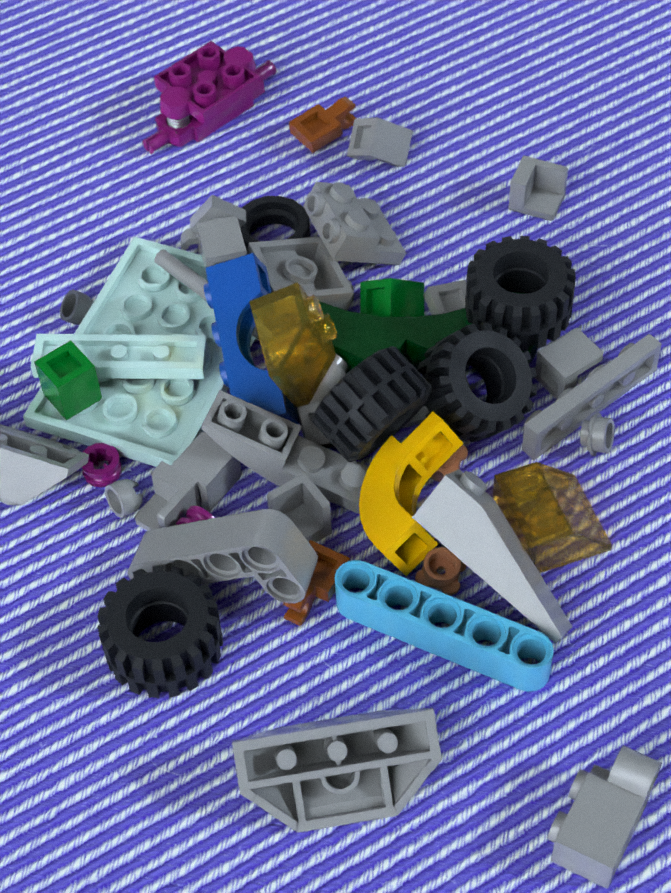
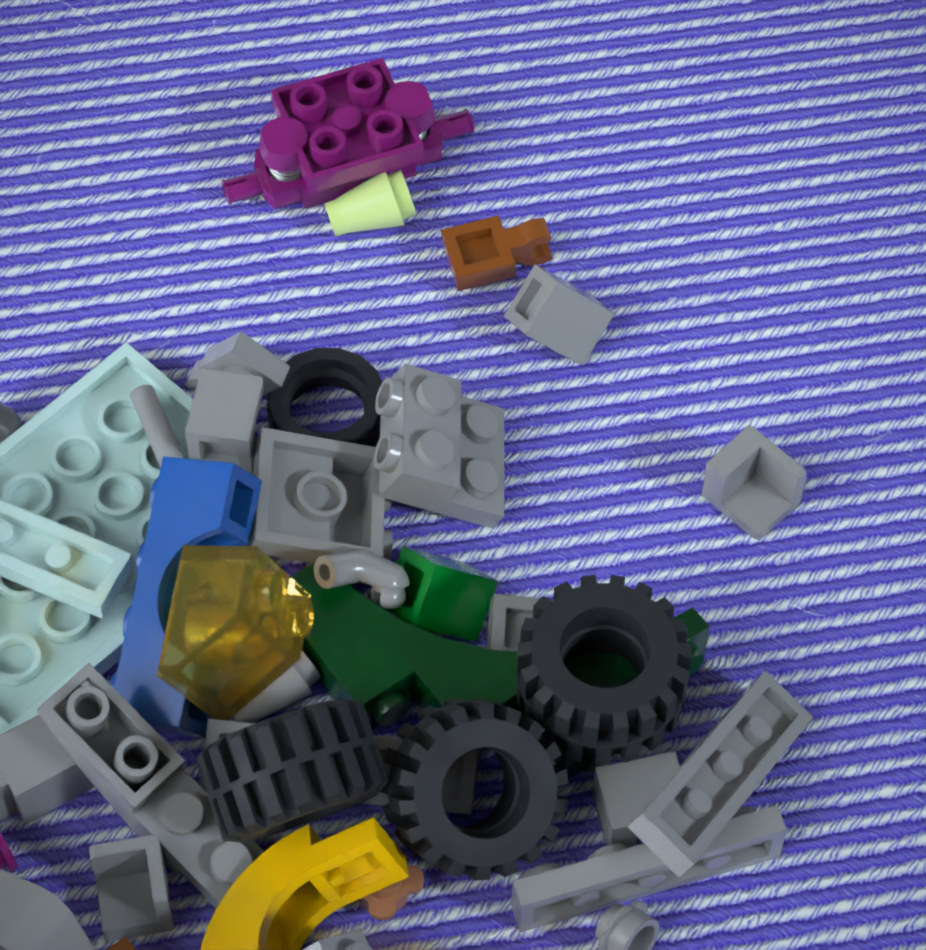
camera: 20 degrees right, 5 degrees up
(242, 122) = (372, 205): none -> yellowish green cone
(349, 295) = (366, 567): none -> light grey arm
(610, 328) = (720, 774): none -> light grey plate

